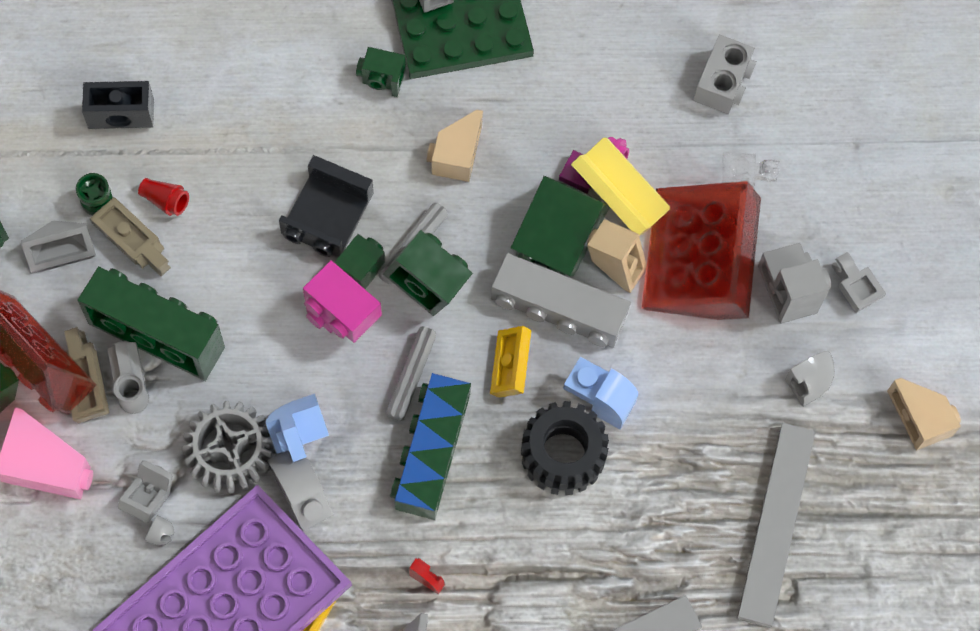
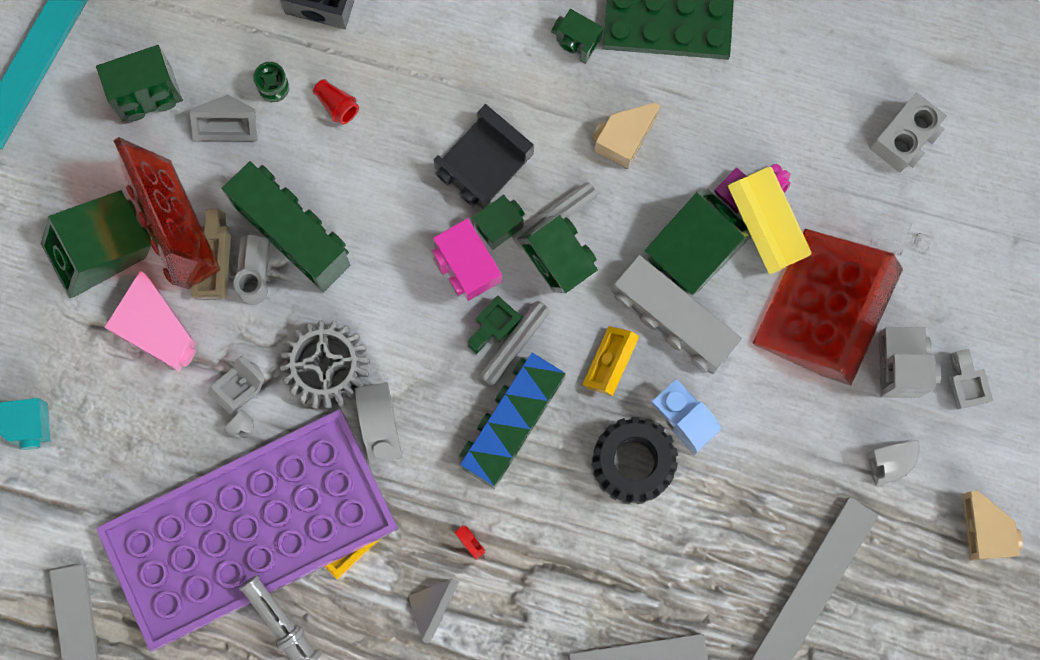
camera: 20 degrees right, 10 degrees up
(130, 236) = (293, 132): dark tan hinge -> none
(296, 425) = (391, 363): light blue brick -> none
(386, 358) = (495, 322): none -> dark green plate
(617, 254) = (744, 286): tan slope -> none

